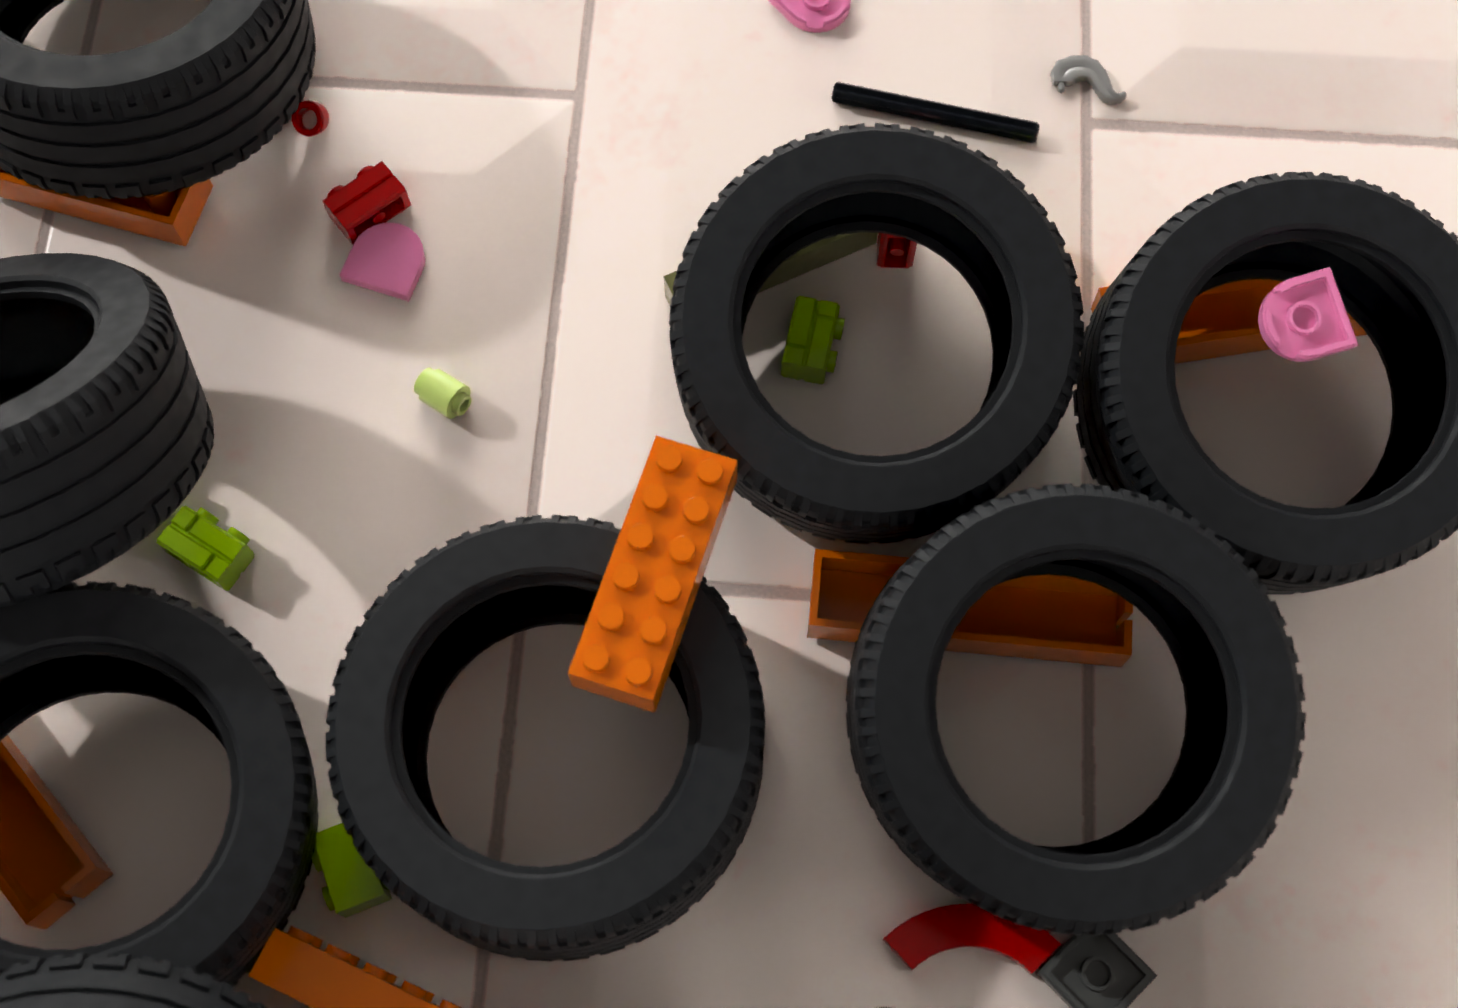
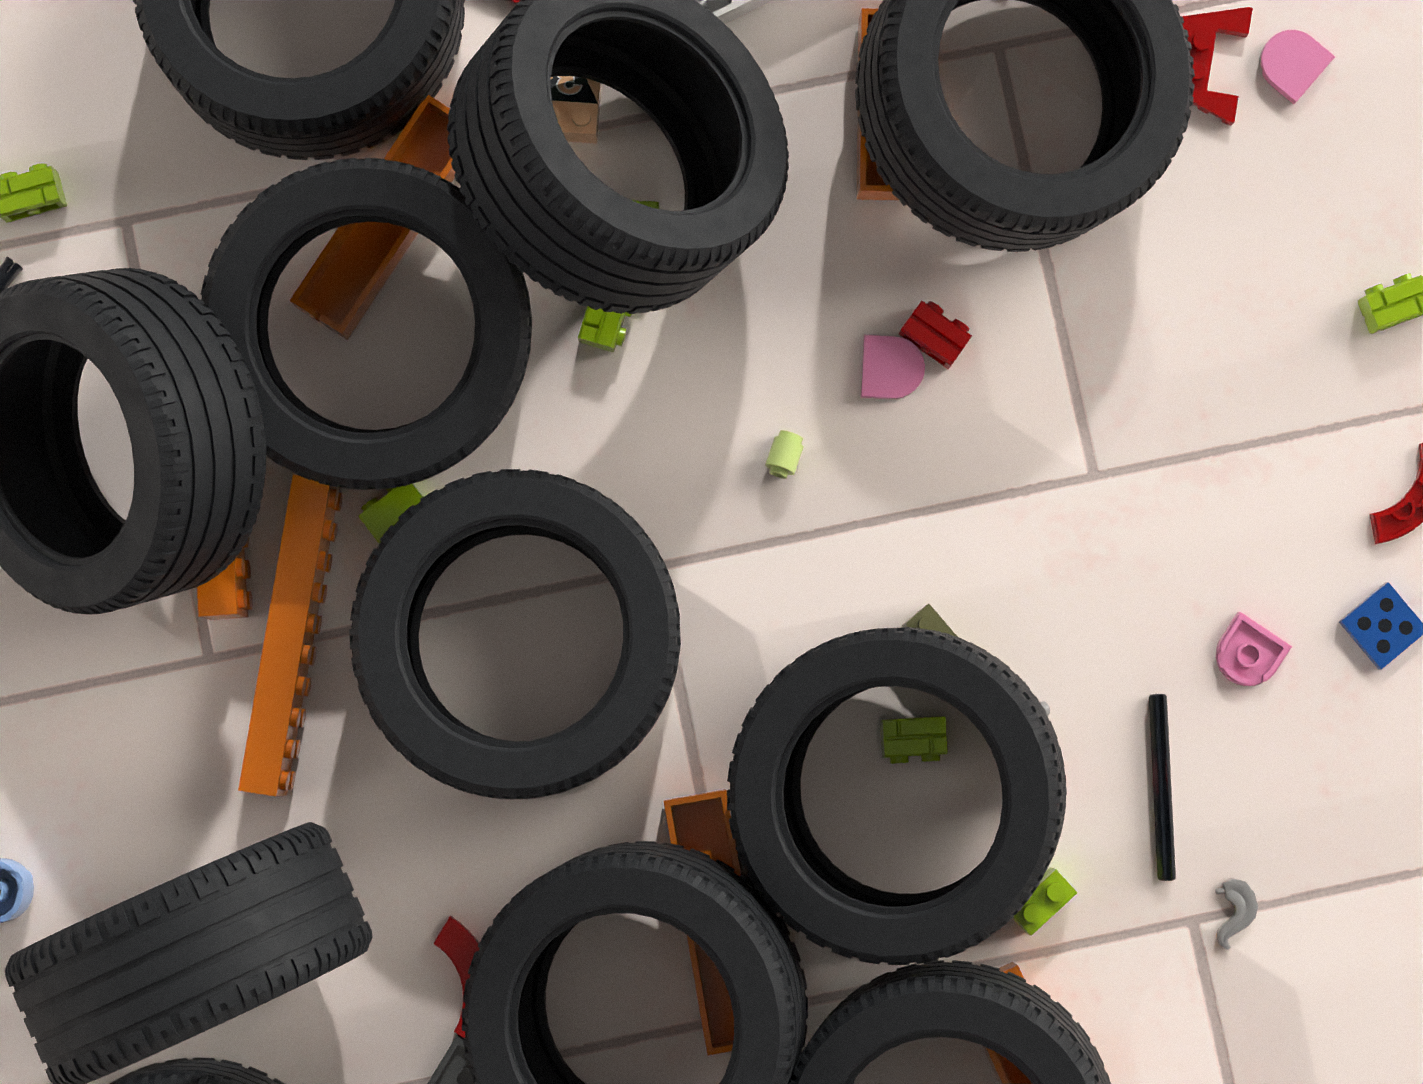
camera: 65 degrees right, 15 degrees up
(321, 114) = (1011, 265): red piece -> none
(654, 574) = (638, 683): orange brick -> none

